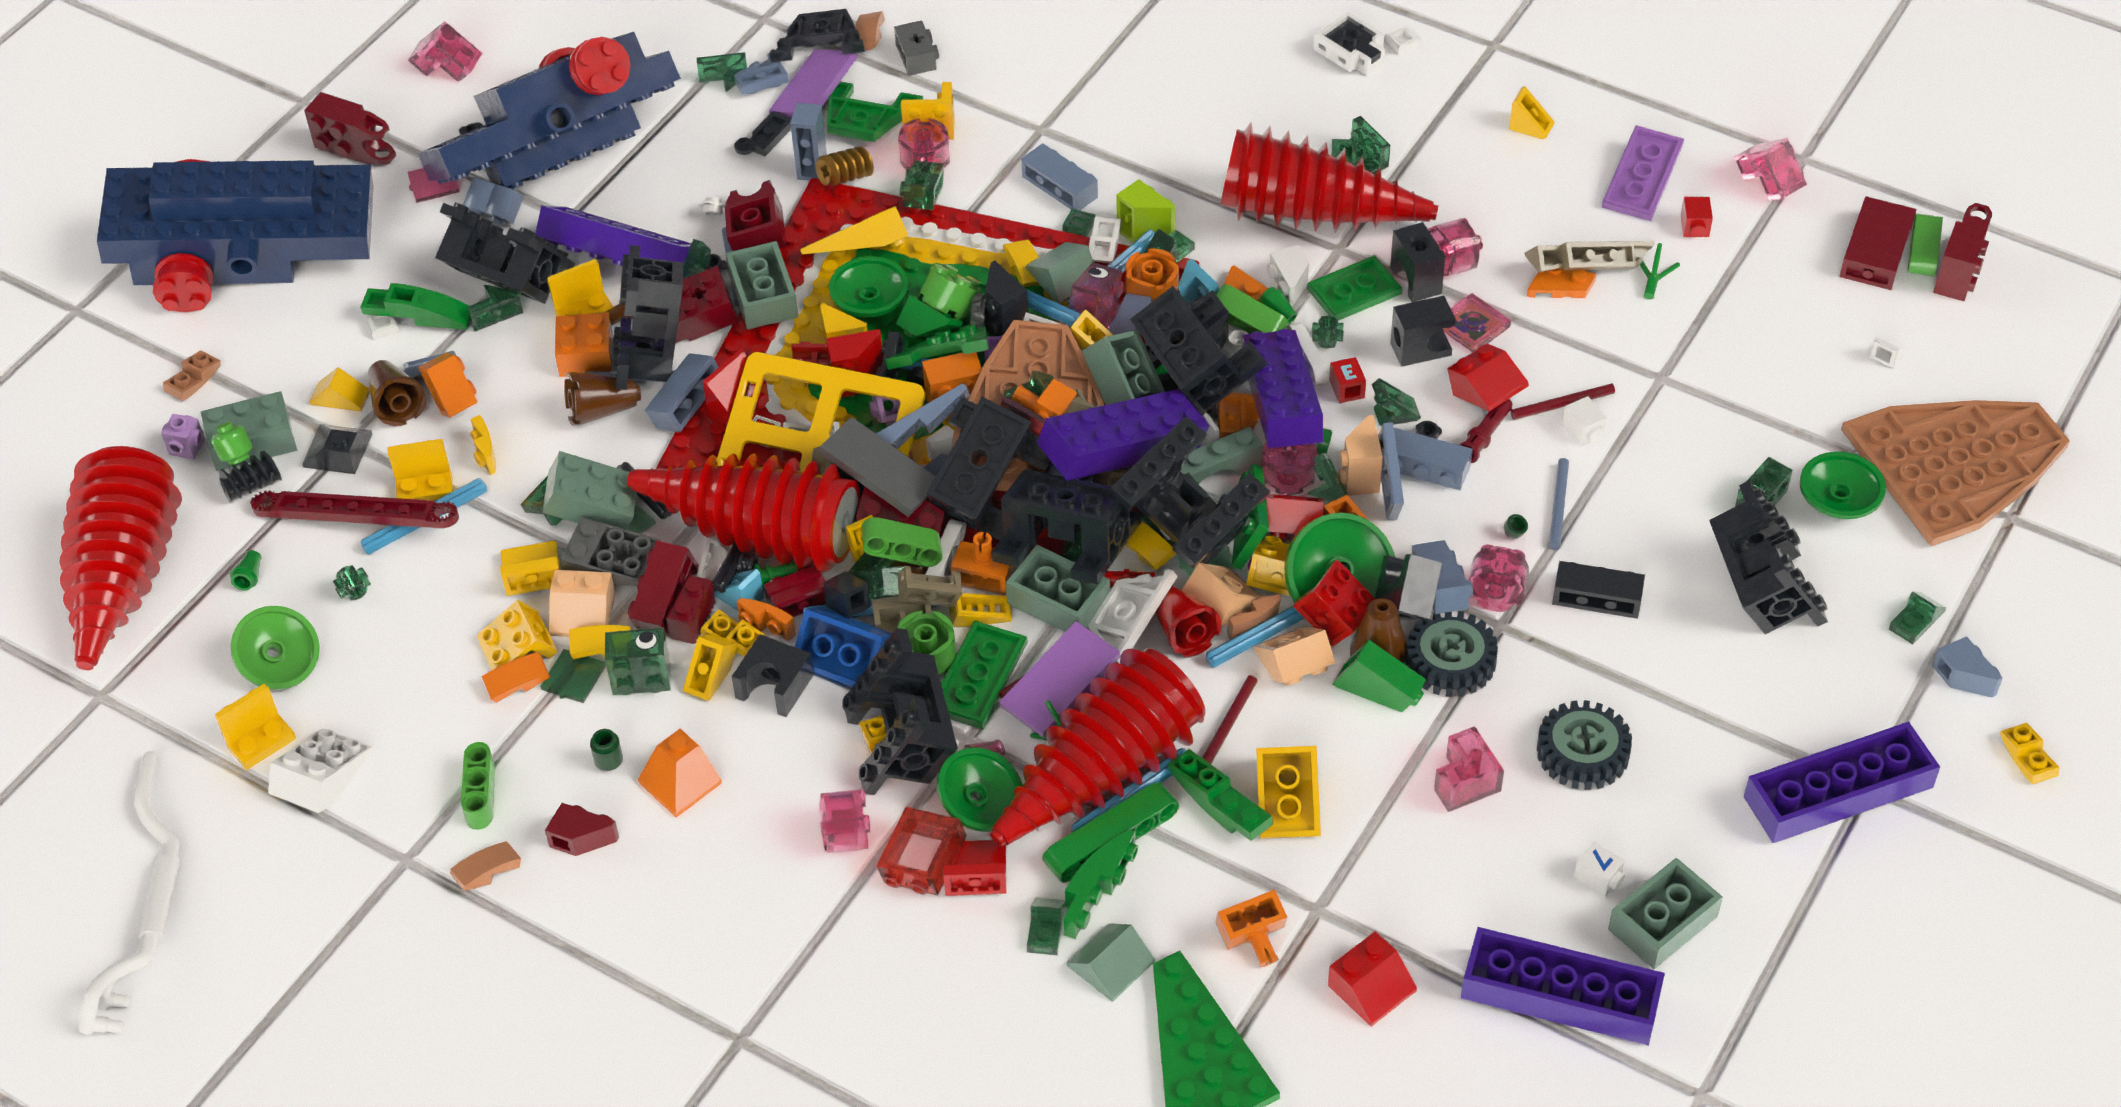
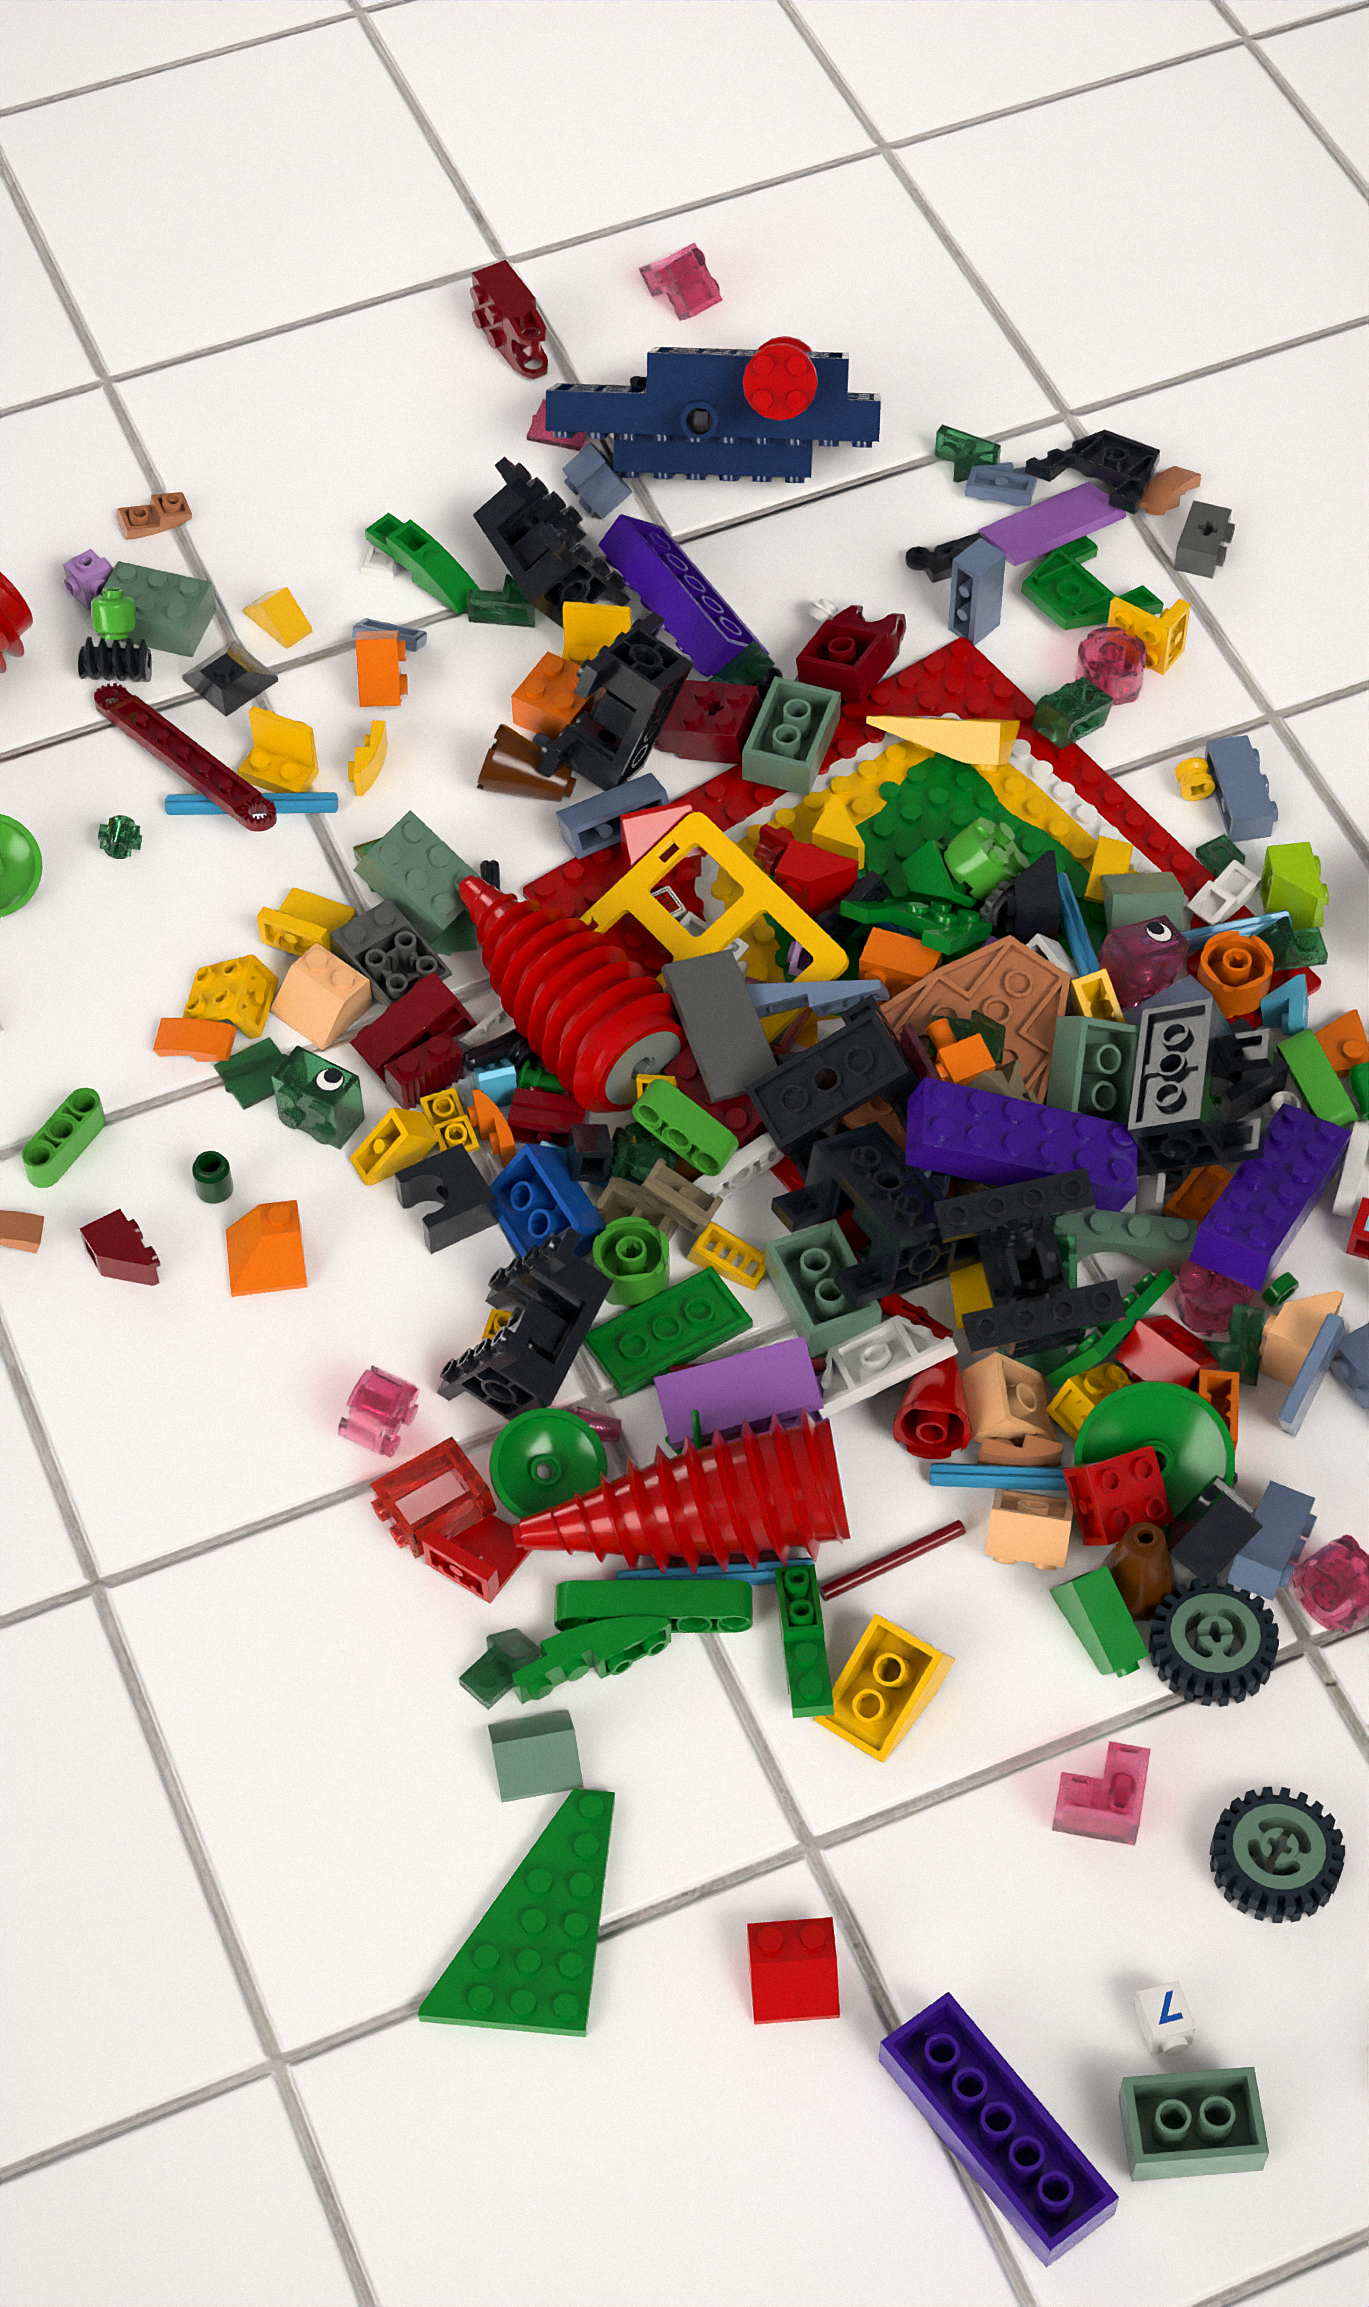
camera: 35 degrees right, 5 degrees up
(230, 223) = (305, 364): dark blue piece -> none
(246, 572) = (35, 764): green cone -> none
(394, 394) = (322, 648): reddish brown cone -> none
(590, 639) = (291, 1034): yellow slope -> none
(844, 166) = (1002, 640): pearl gold piece -> none
(868, 286) = (907, 791): green dish -> none
(977, 567) = (752, 1200): orange brick -> none
(1028, 186) = (1194, 779): none -> yellow wheel
(1252, 923) = (713, 1816): orange brick -> none

